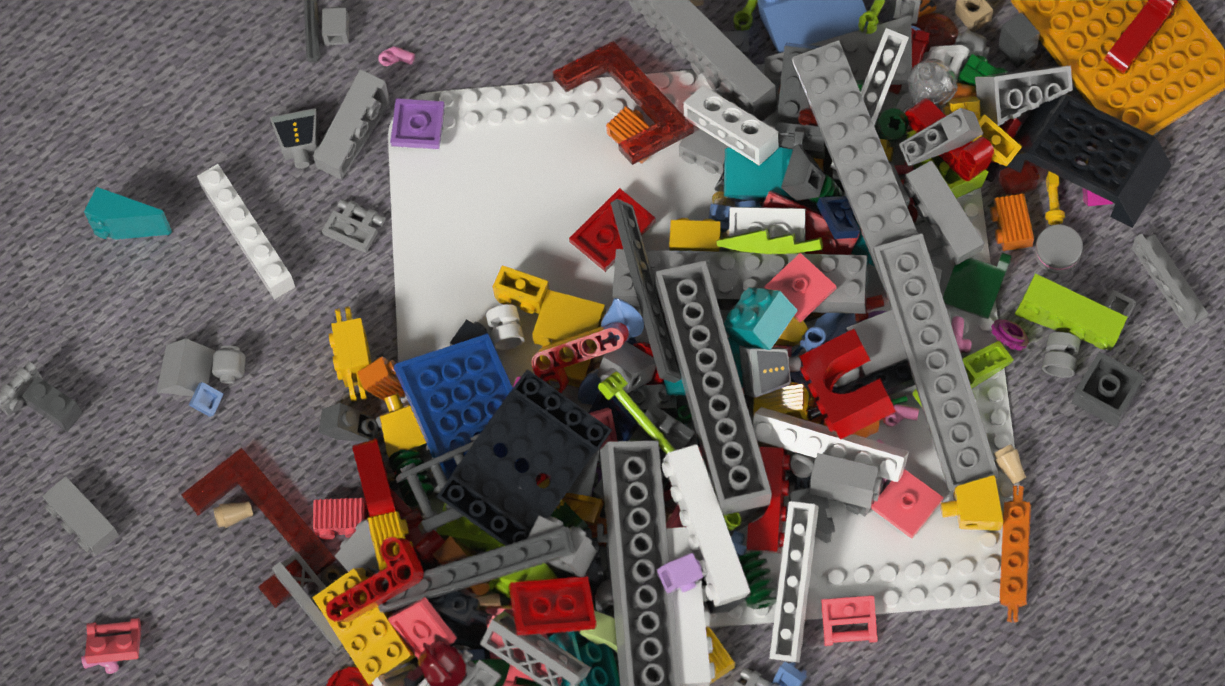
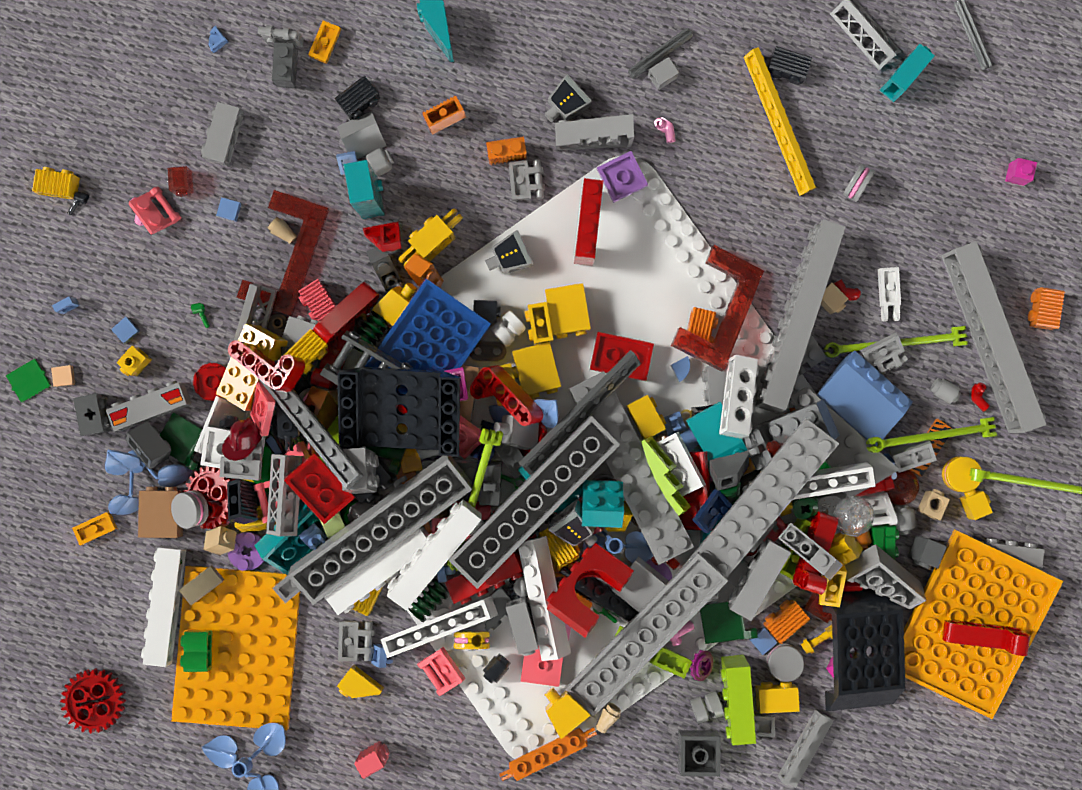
camera: 50 degrees right, 20 degrees up
(56, 349) = (324, 42): none -> light orange plate
(99, 592) = (180, 181): none -> clear red brick
(142, 348) = (358, 98): none -> black brick
(167, 561) = (228, 209): none -> medium blue tile
(225, 266) = (444, 115): none -> orange brick
(246, 231) = (478, 111): white brick -> none
(253, 383) = (364, 189): none -> teal brick
(257, 657) = (199, 308): none -> green hand
(308, 225) = (506, 150): none -> orange brick
(315, 401) = (384, 236): none -> red wing
(422, 159) = (588, 221): none -> red arch
(425, 281) = (510, 254): none -> torso
(515, 366) = (488, 351): none -> dark brown plate
(526, 252) = (568, 310): none -> yellow brick
(604, 662) = (313, 536): none -> medium blue tile
(665, 177) = (681, 368): none -> medium blue tile
(680, 574) = (390, 559): lavender brick -> none
(802, 285) = (643, 516): coral plate -> none
(831, 557) = (471, 640): none -> yellow head
(881, 553) = (496, 668): none -> black brick
(902, 412) = (603, 623): bright pink arm -> none
(1022, 260) = (764, 641): none -> medium blue tile
(1094, 273) = (777, 698): none -> yellow brick

